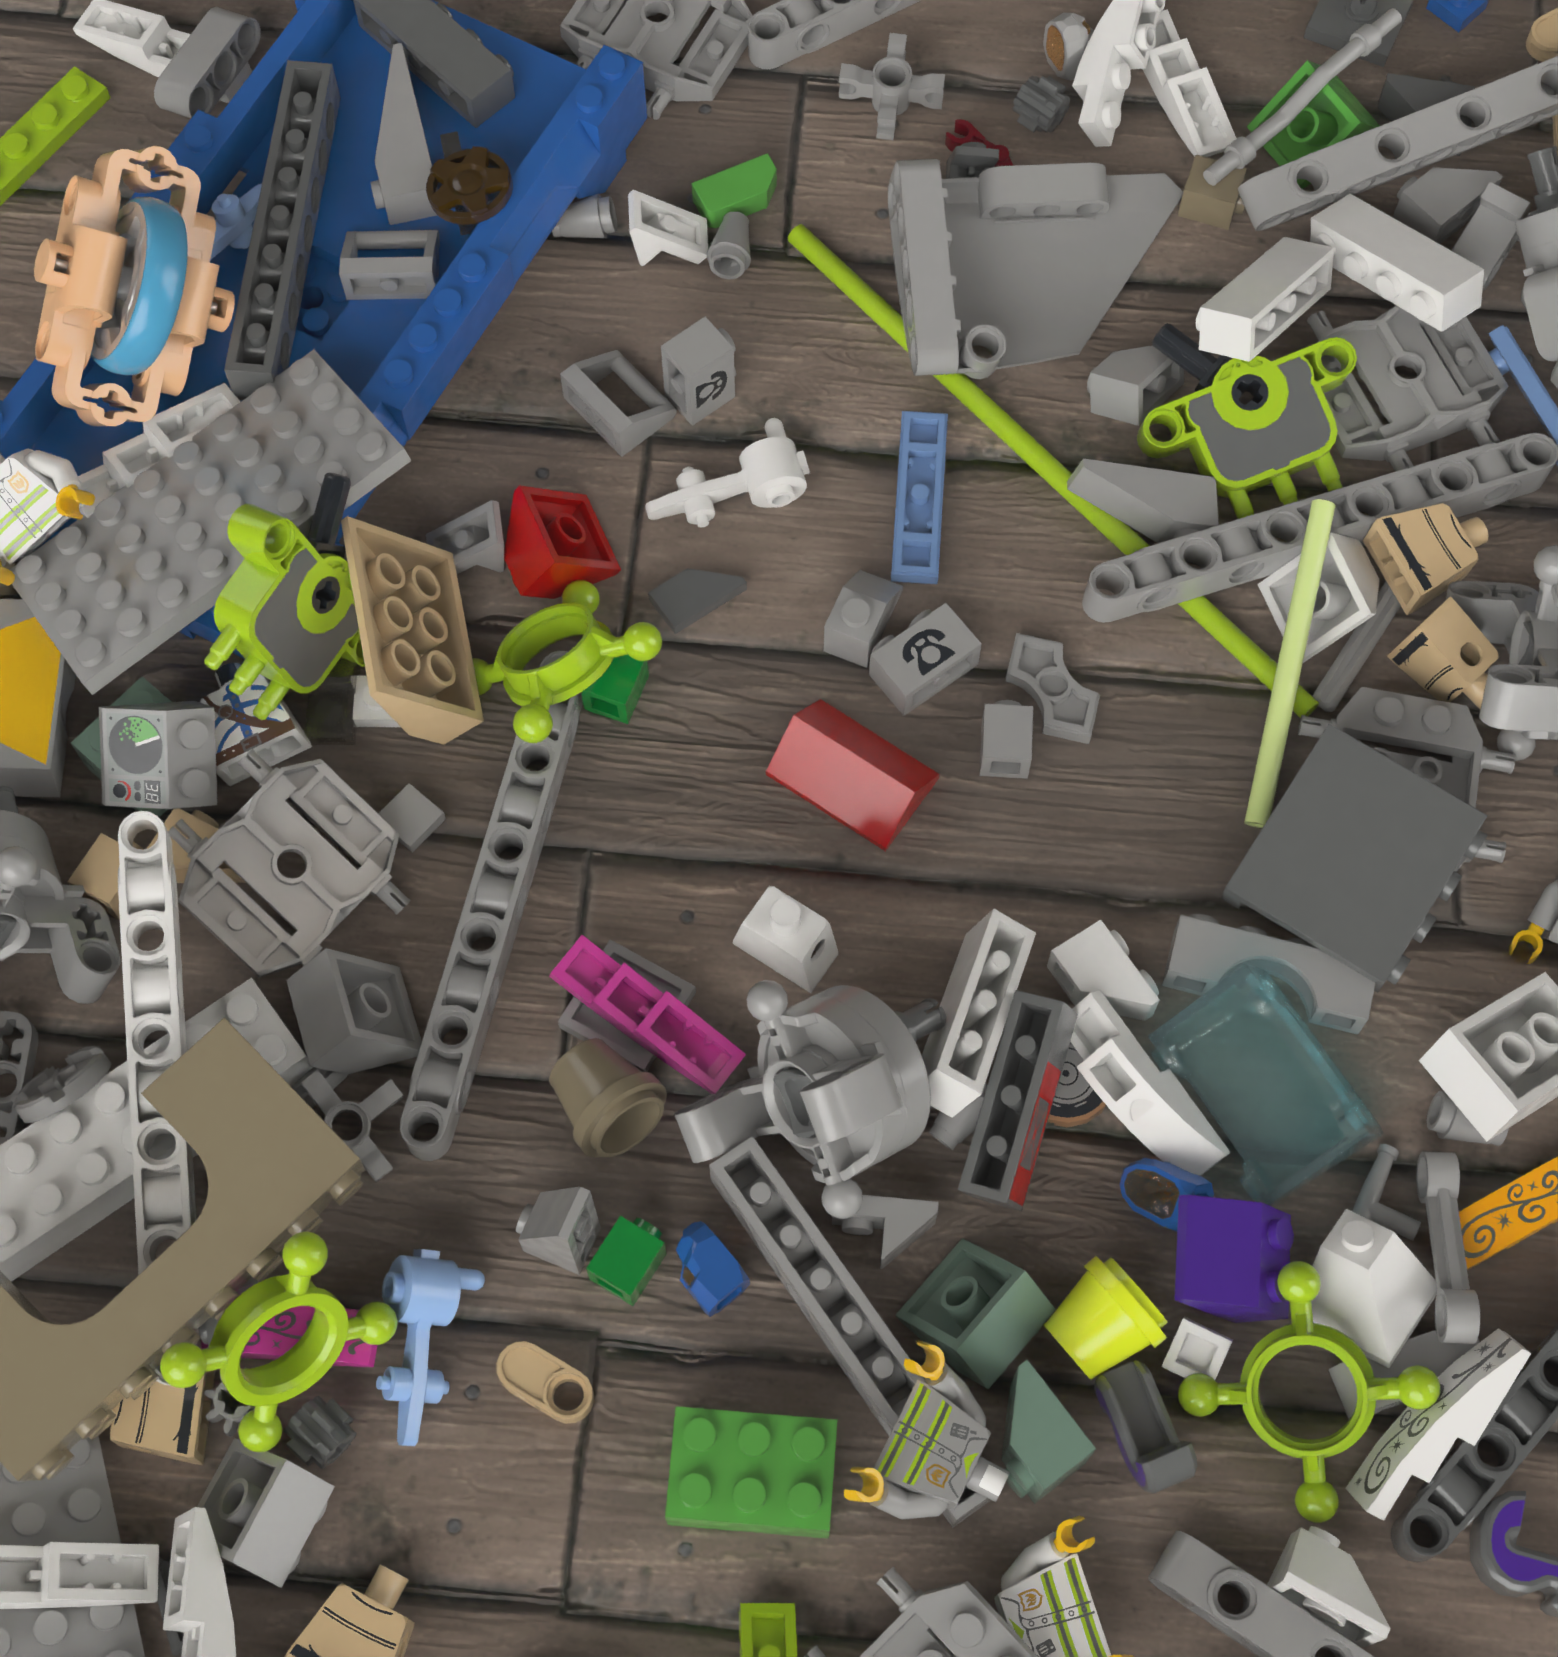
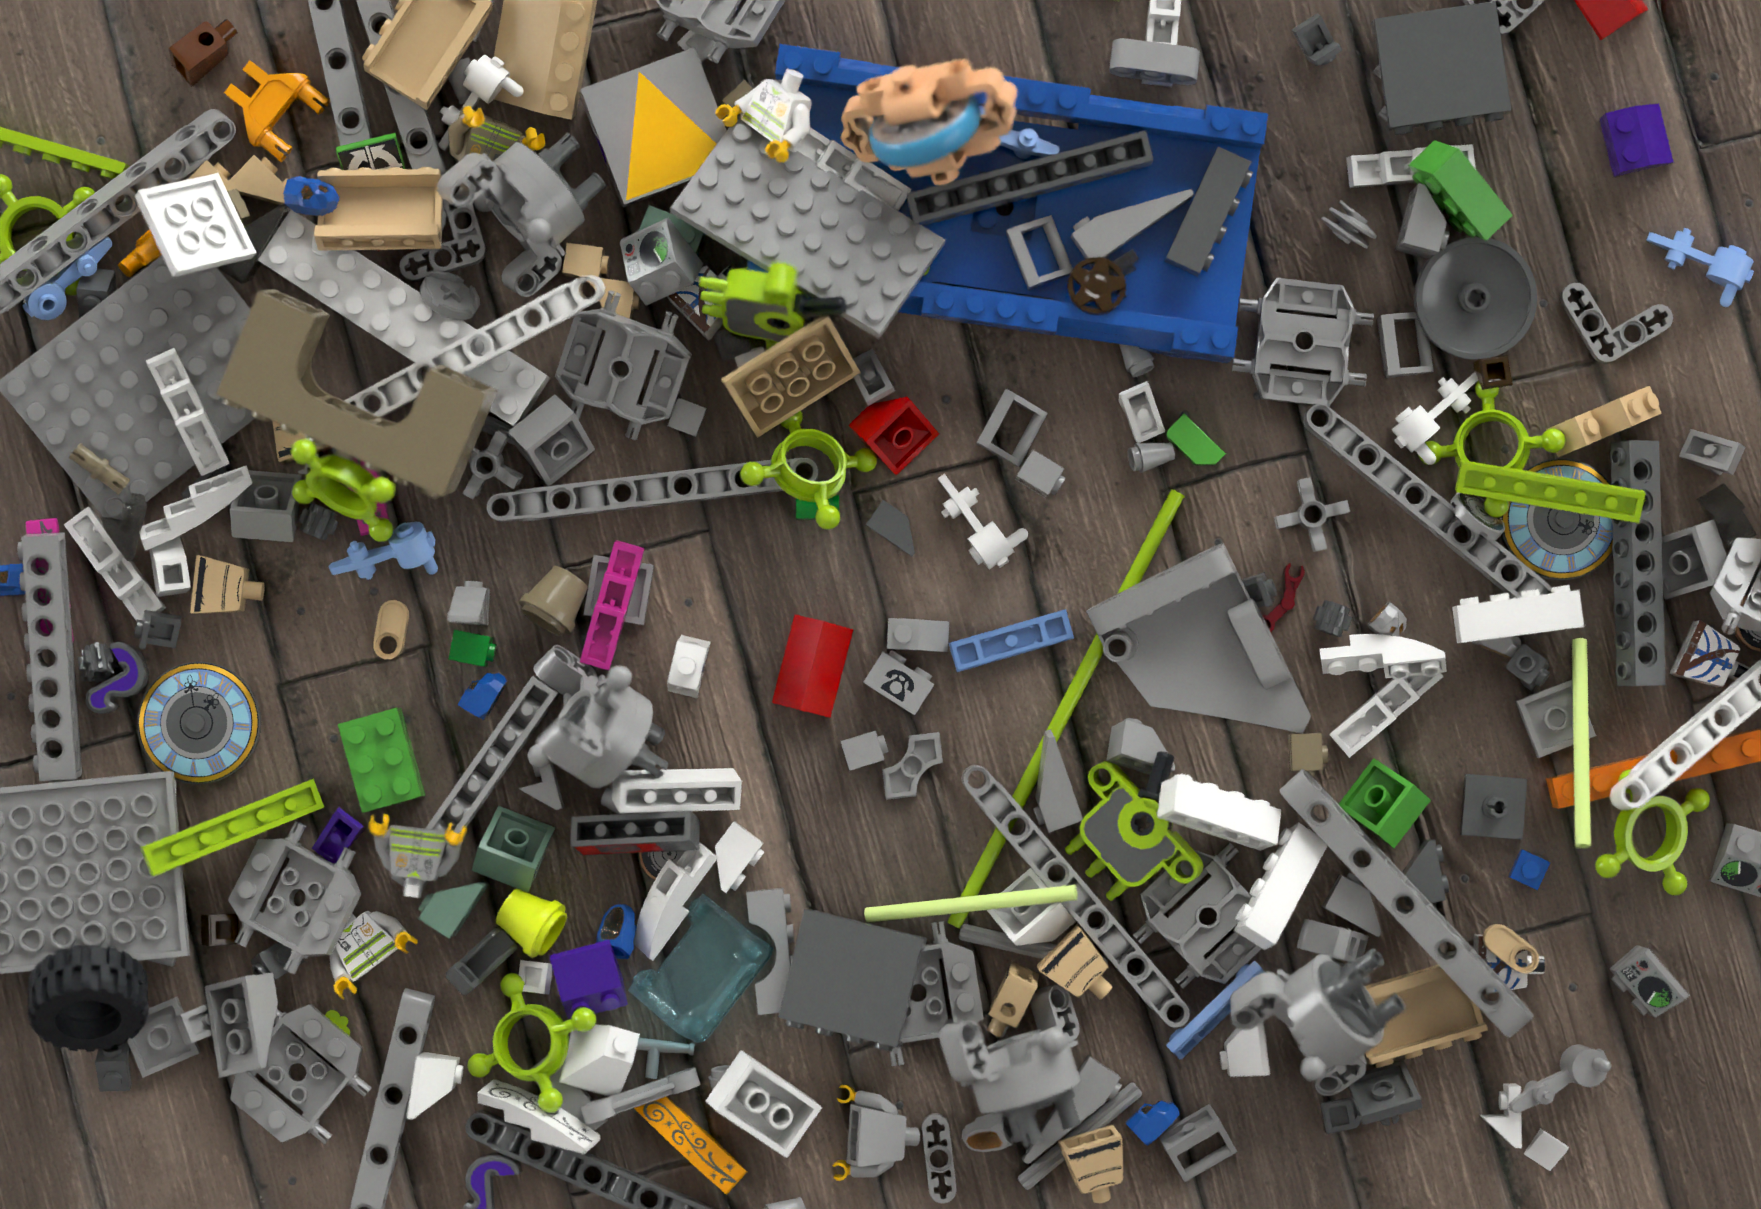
camera: 70 degrees right, 20 degrees up
(851, 1593) = (338, 833): none -> dark purple slope
(1244, 149) = (1438, 817): light grey bar -> none

